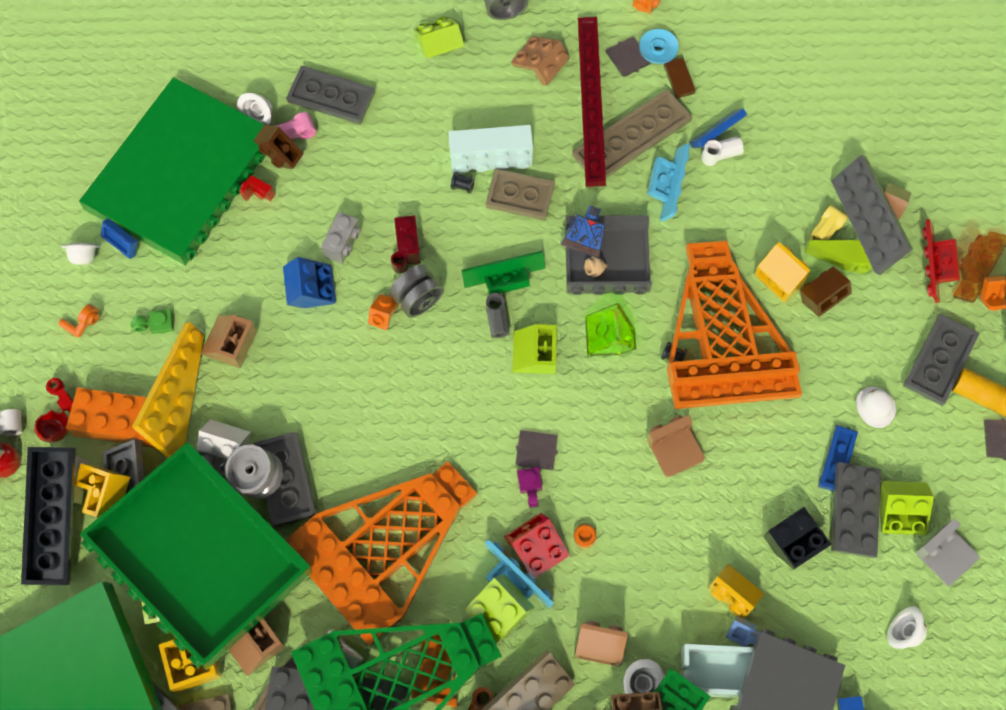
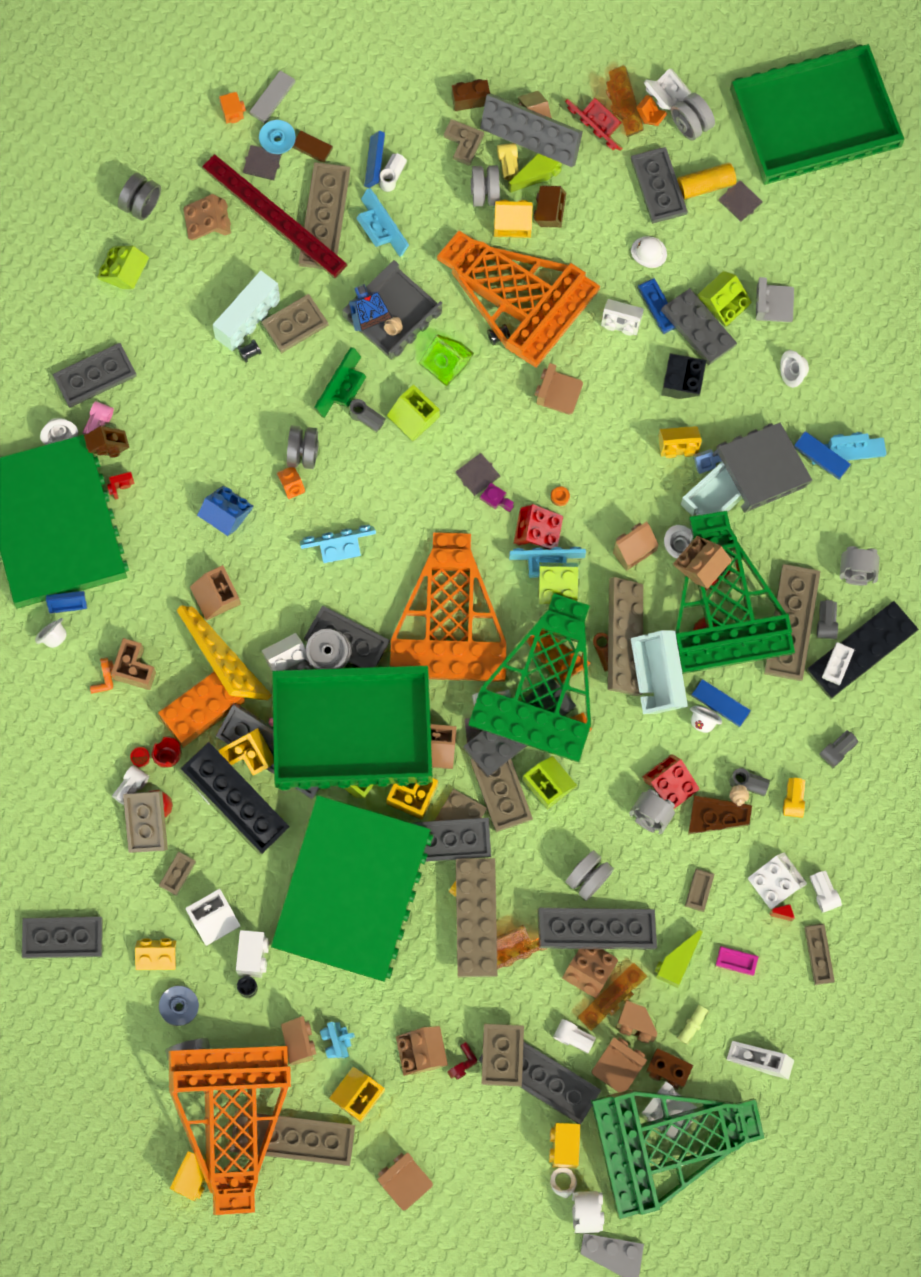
camera: 50 degrees left, 5 degrees up
(33, 409) = (140, 757): none -> red tile
(65, 400) = (155, 730): red plate -> none
(102, 329) = (128, 666): none -> medium nougat brick
(159, 322) = (153, 627): bright green plate -> none
(340, 238) = (211, 458): light grey brick -> none
(364, 397) = (339, 545): none -> medium azure bracket
(406, 243) = (258, 423): dark red hinge -> none
(688, 16) = (272, 97): none -> light grey tile
(786, 224) = (485, 185): none -> light grey wheel
(794, 437) = (622, 317): none -> white slope
(811, 178) = (468, 139): none -> dark tan plate
(848, 145) = (470, 94): none -> reddish brown brick

